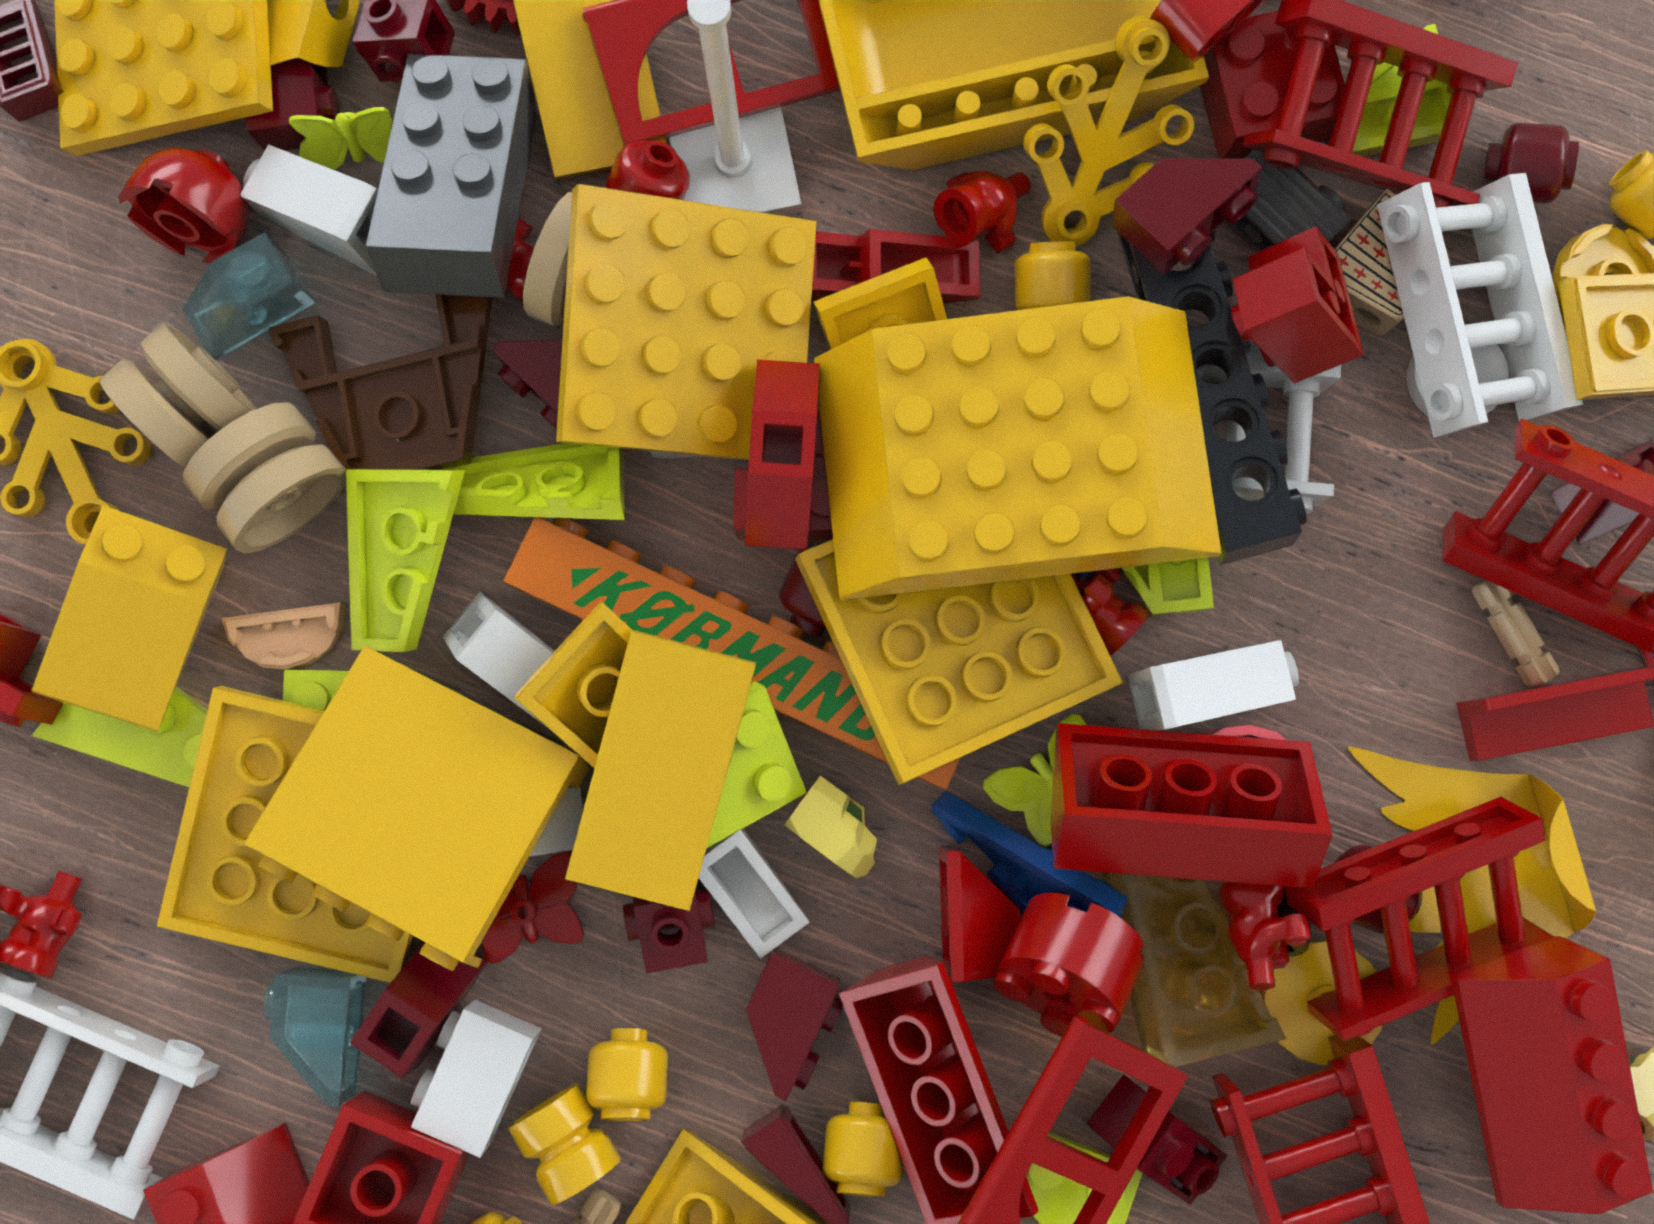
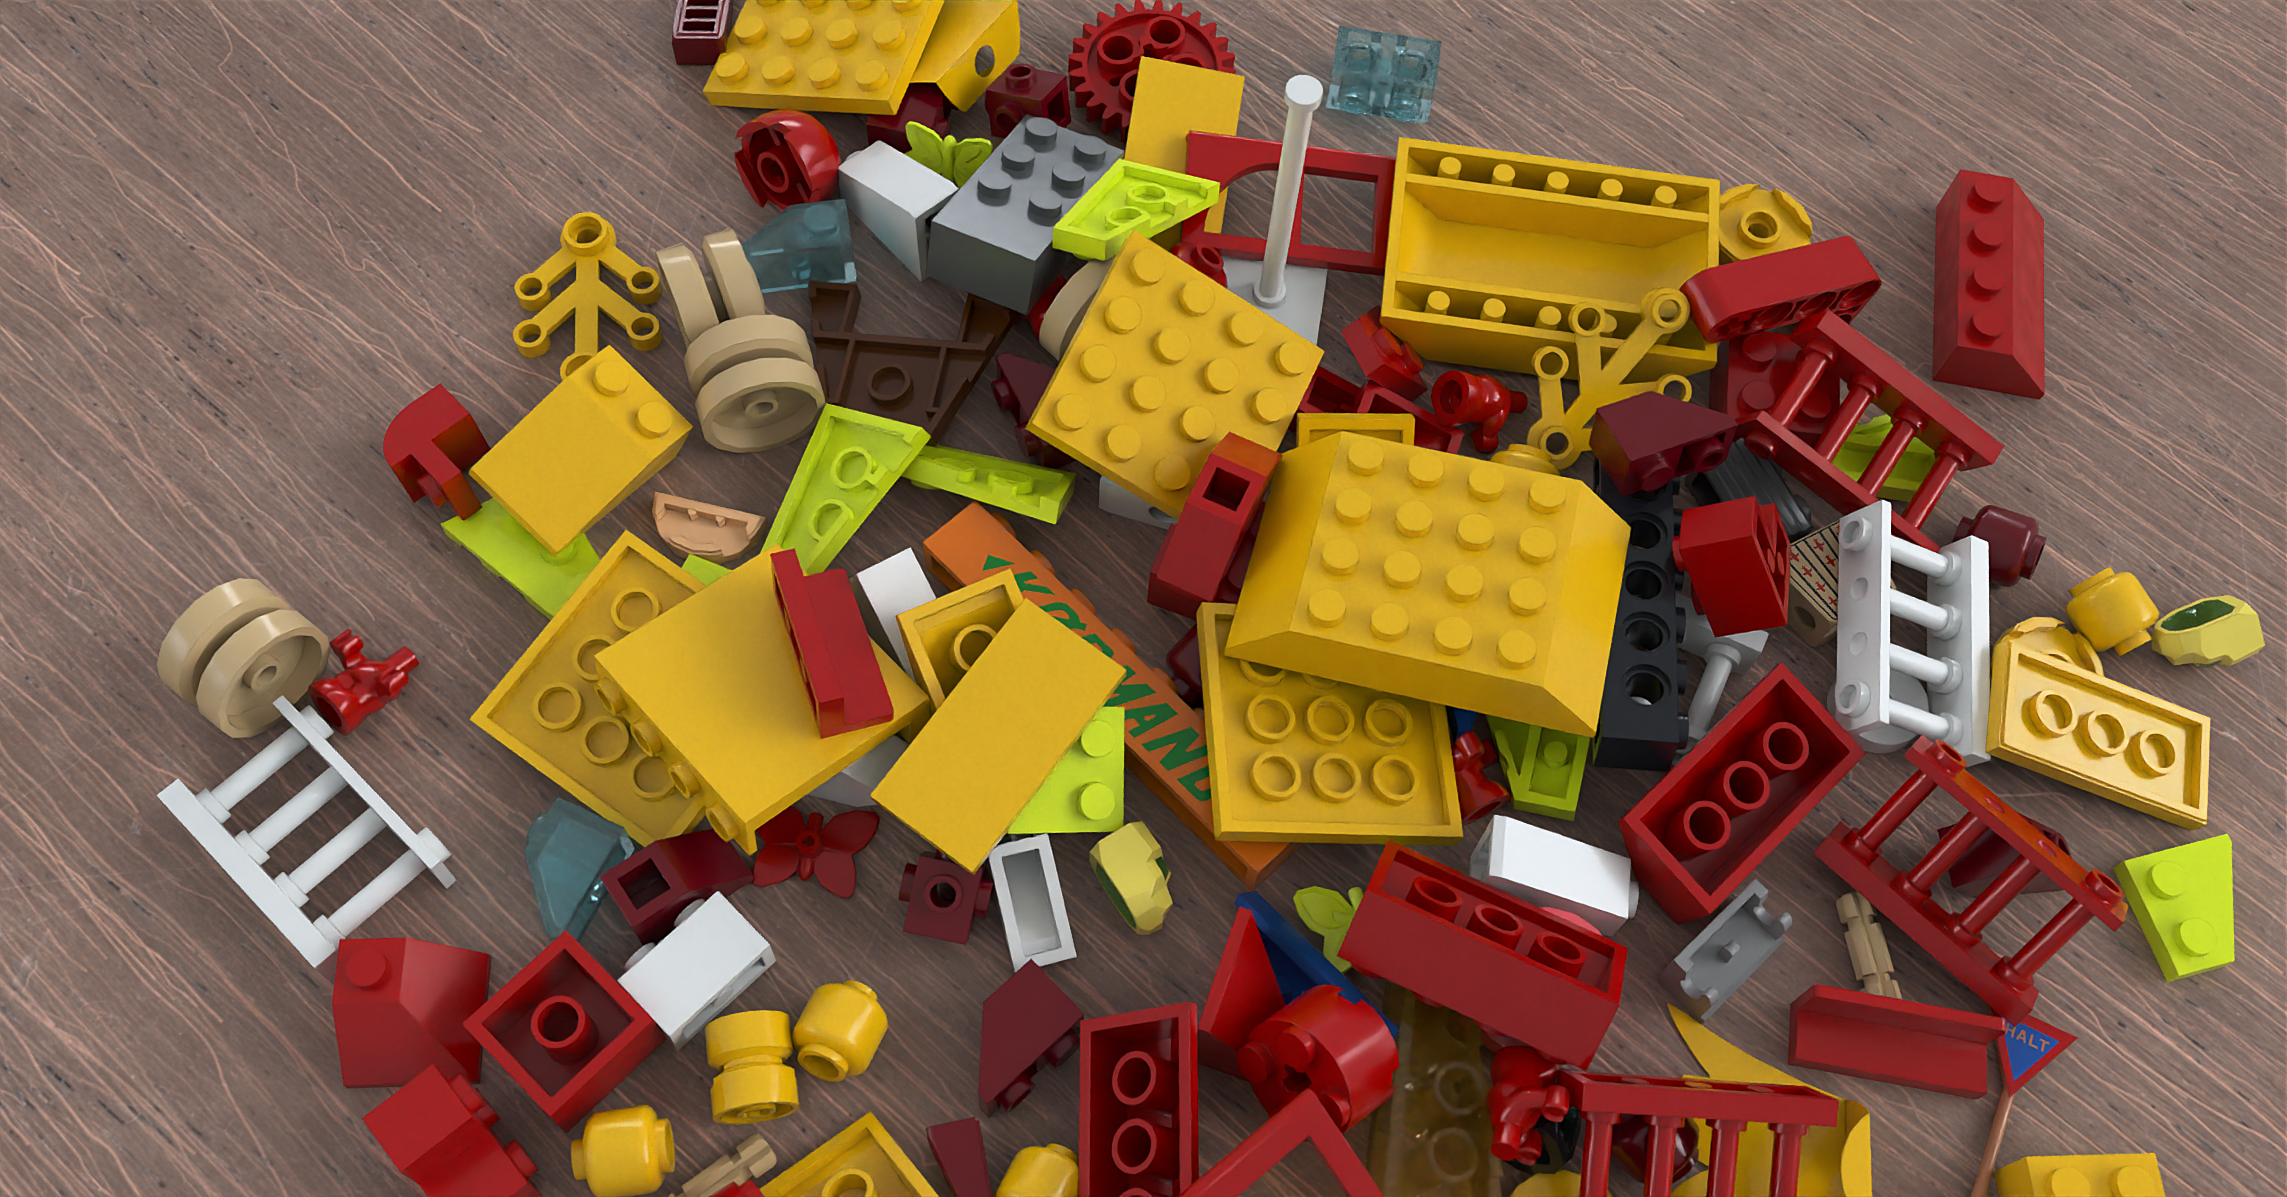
camera: 15 degrees right, 20 degrees down
(464, 745) = (830, 647): none -> red panel
(558, 137) = (1128, 200): none -> neon yellow wing
(870, 194) = (1385, 356): none -> red wing
(1365, 538) = (1736, 796): none -> red slope
(1385, 684) = (1725, 953): none -> light grey hinge

